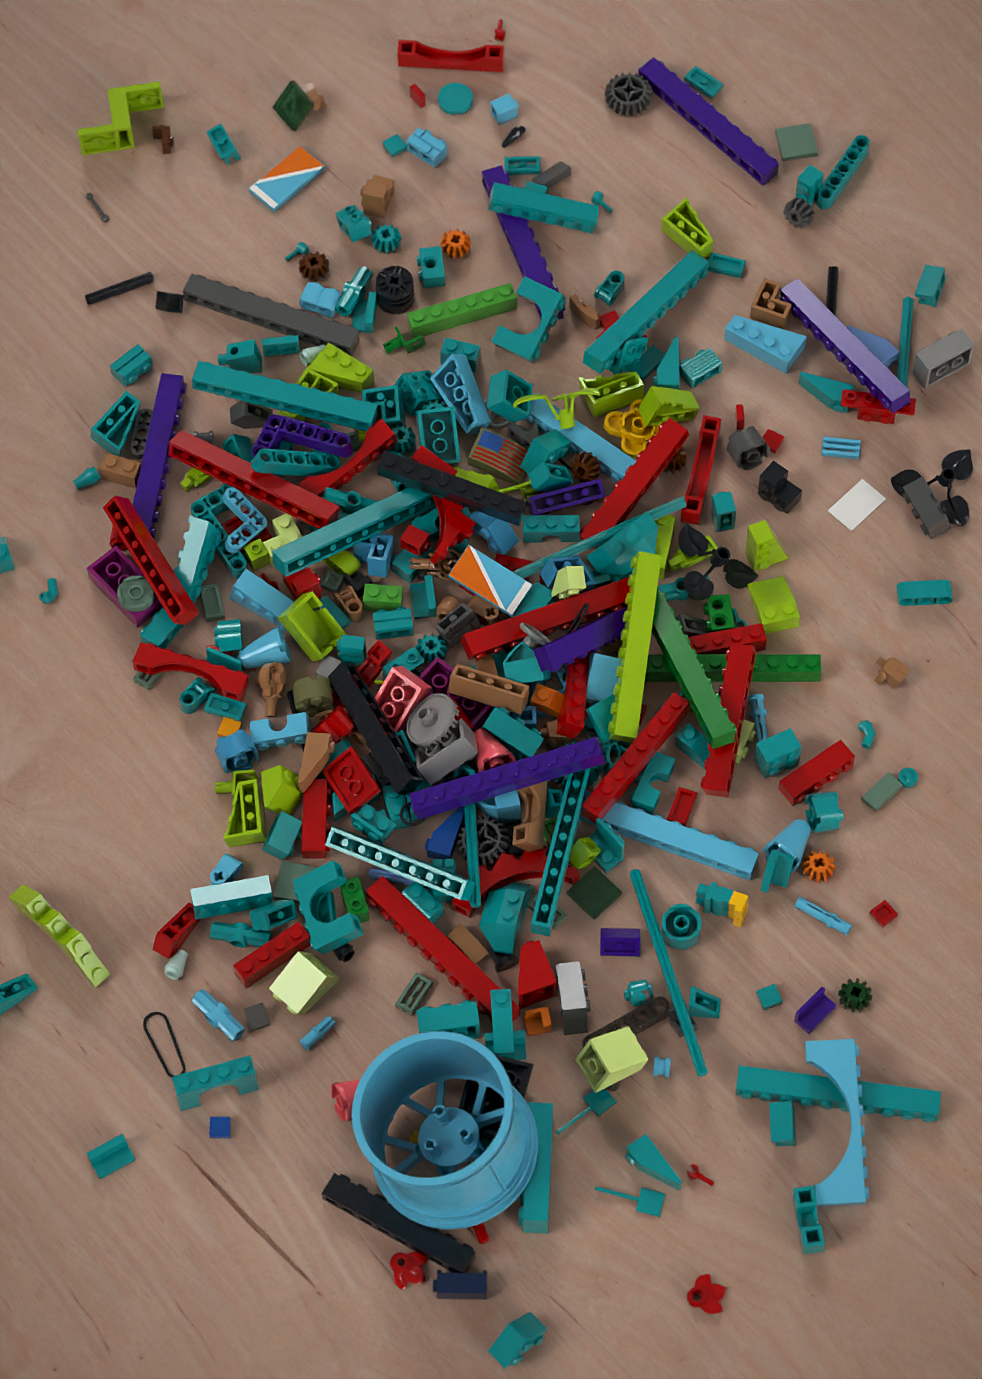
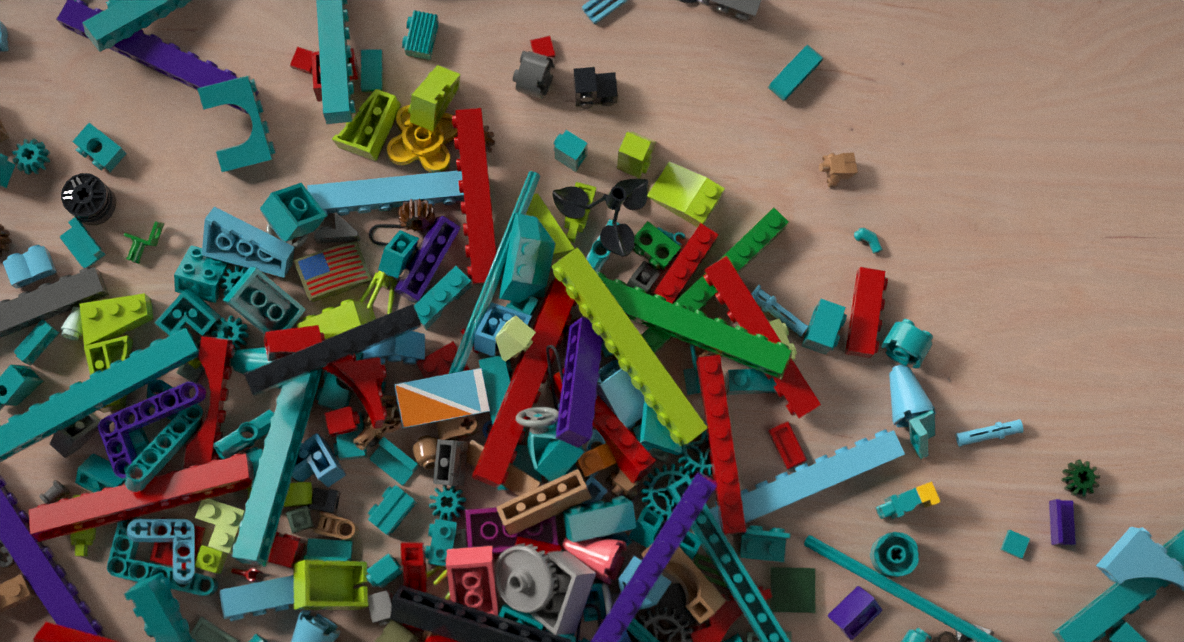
camera: 50 degrees left, 15 degrees up
(354, 291) = (52, 232): teal piece -> none
(382, 597) = (361, 496): bright green brick -> none
(453, 346) = (198, 208): teal brick -> none
(455, 243) = (93, 100): orange gear -> none
(462, 310) = (166, 165): bright green brick -> none
(546, 449) = (370, 233): teal brick -> none
(566, 415) = (358, 186): lime plant -> none
(584, 313) = (279, 71): medium nougat slope -> none
(584, 852) = (756, 564): lime brick -> none
(608, 290) = (274, 33): teal piece -> none
(629, 356) = (359, 80): teal bracket -> none
(644, 796) = (750, 466): teal arch -> none
(668, 369) = (402, 66): teal slope -> none
(701, 469) = (512, 128): red arch -> none
(703, 1004) = (974, 604): teal slope -> none
(739, 415) = (497, 51): red tile -> none
(813, 861) = (952, 388): orange gear -> none
(856, 504) = (664, 42): white sticker -> none
(881, 792) = (928, 279): sand green tile -> none
(883, 913) = (1030, 384): red tile -> none
(908, 777) = (936, 247): teal tile -> none

